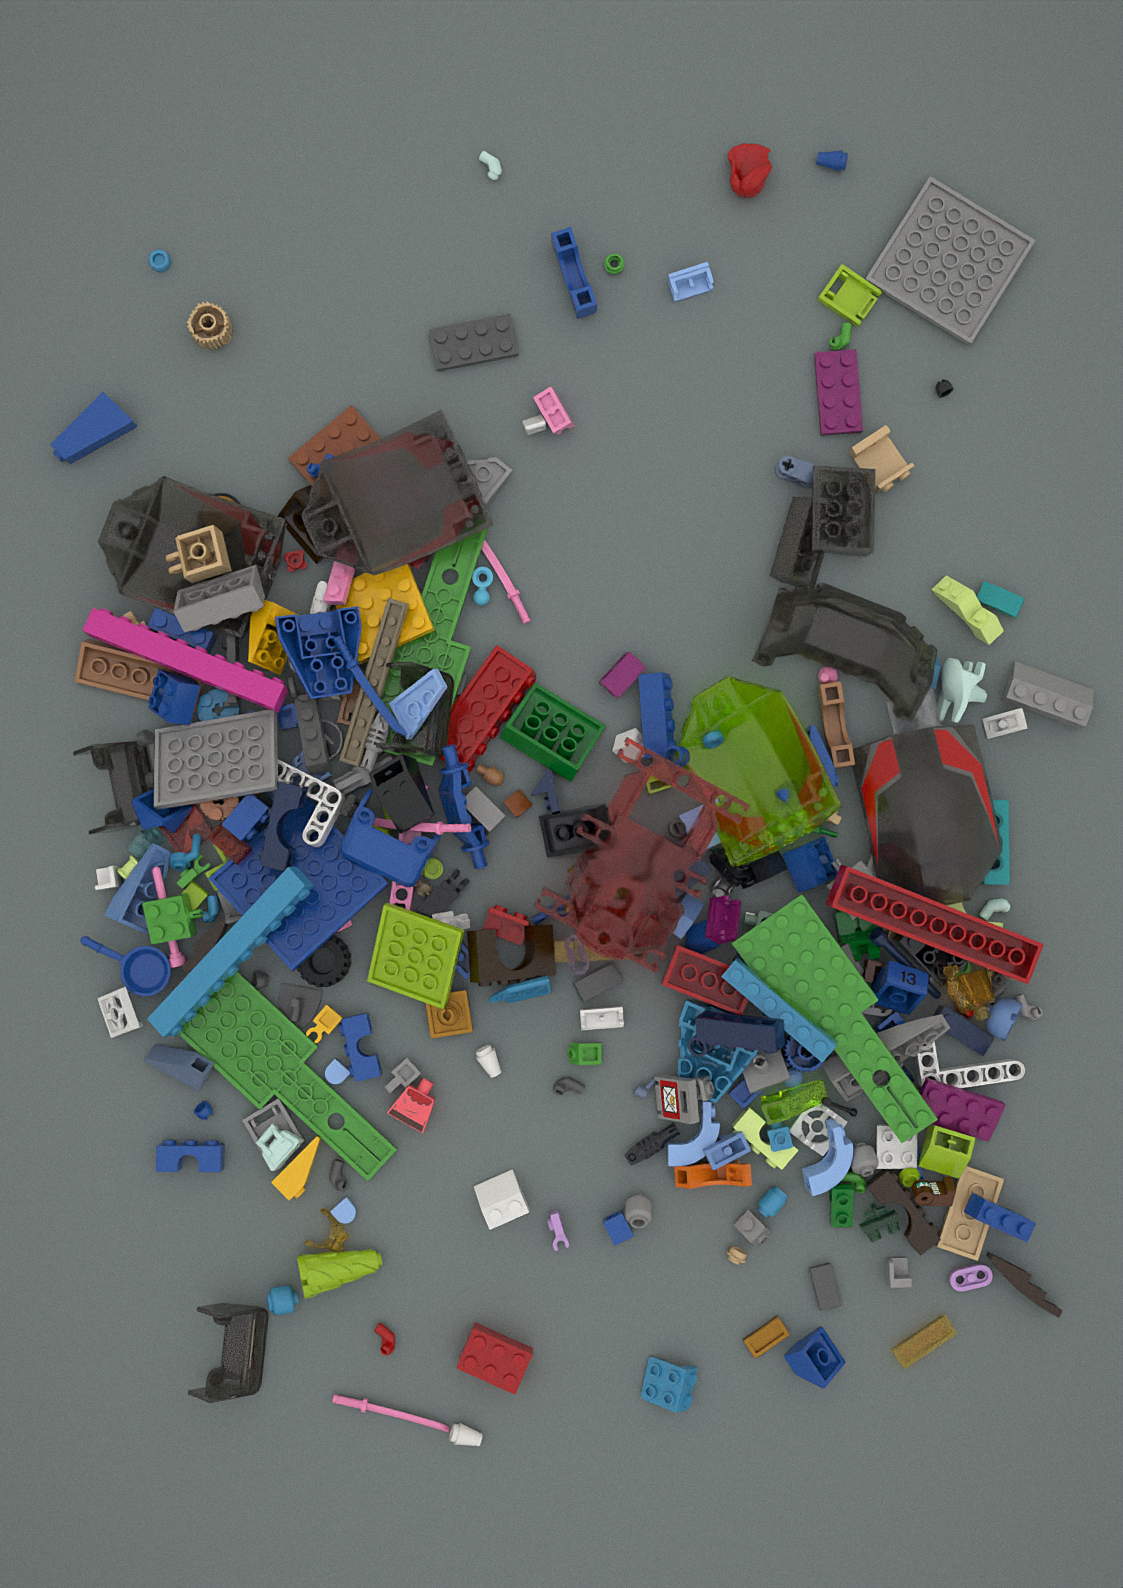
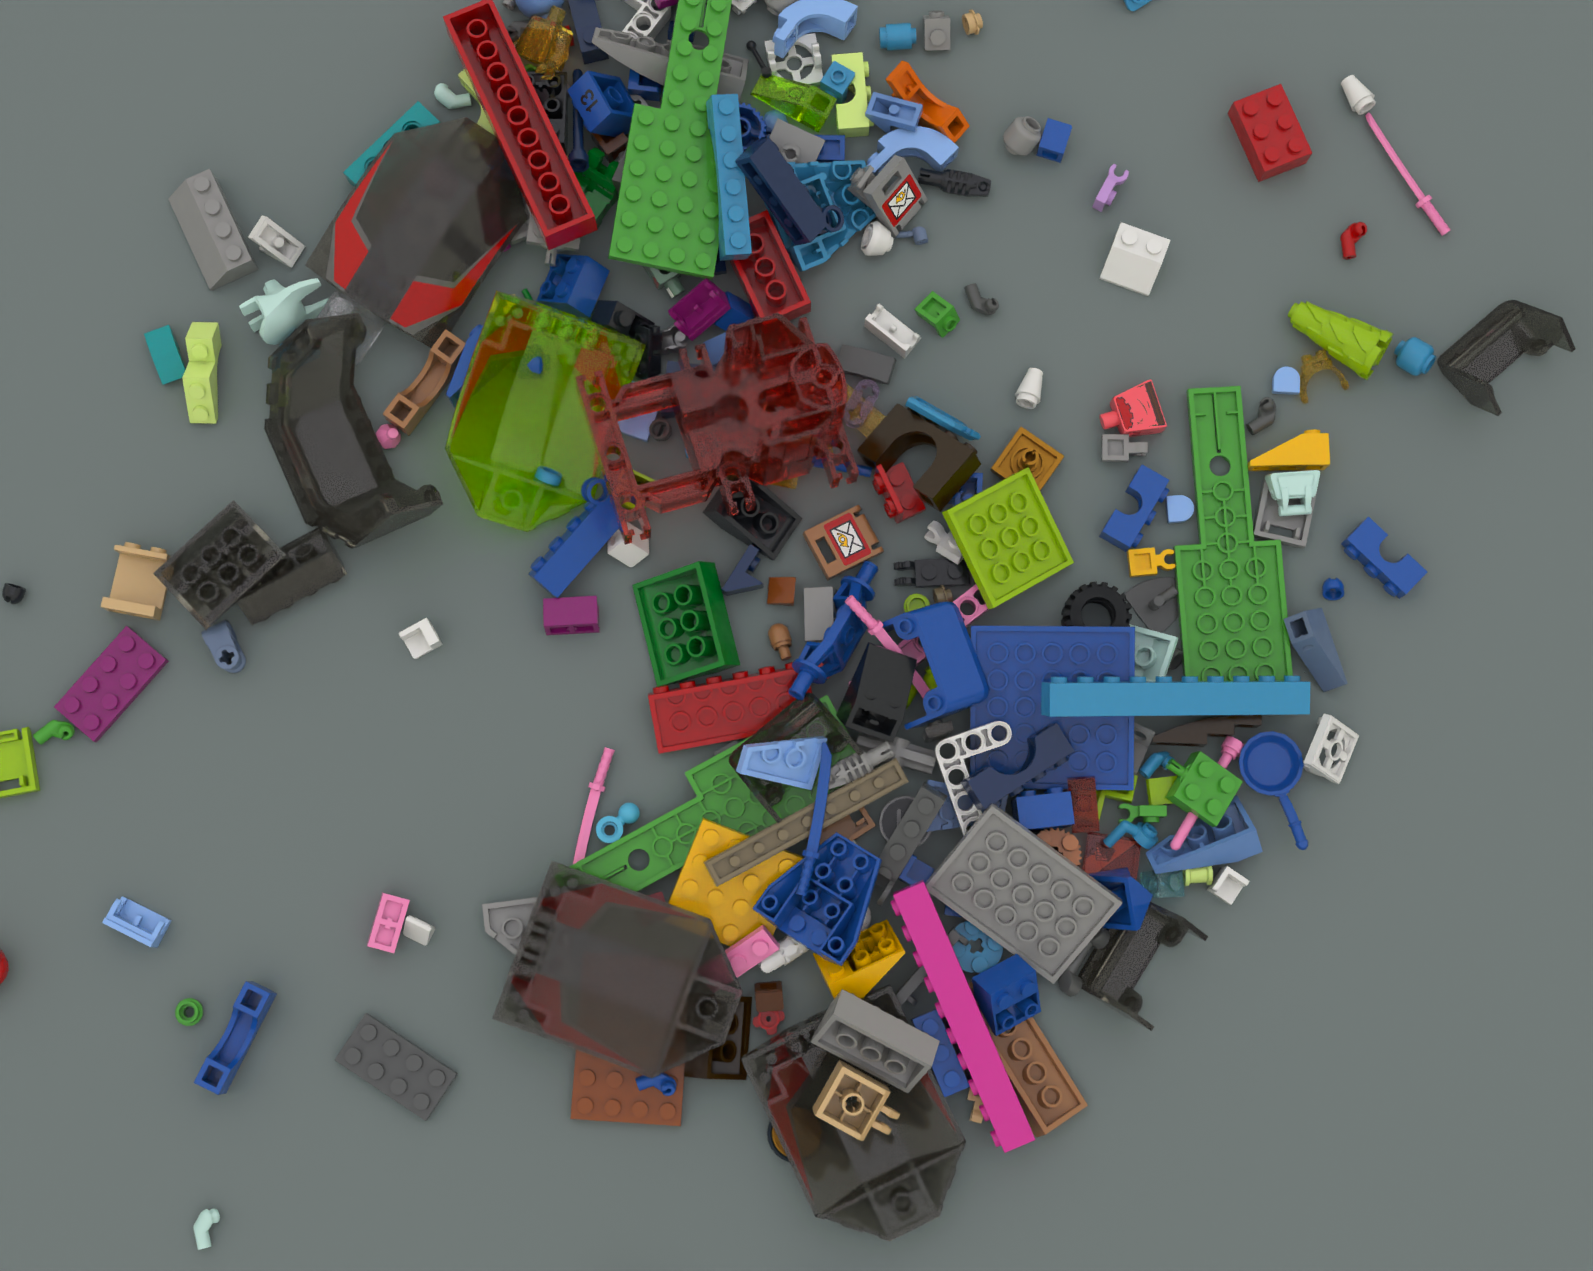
camera: 135 degrees left, 5 degrees down
(271, 969) = (1153, 652): none -> light aqua slope
(306, 572) = (769, 996): none -> reddish brown slope
(508, 868) = (848, 539): none -> container
(663, 1063) = (876, 239): none -> white cone
(692, 581) = (420, 638): none -> white panel

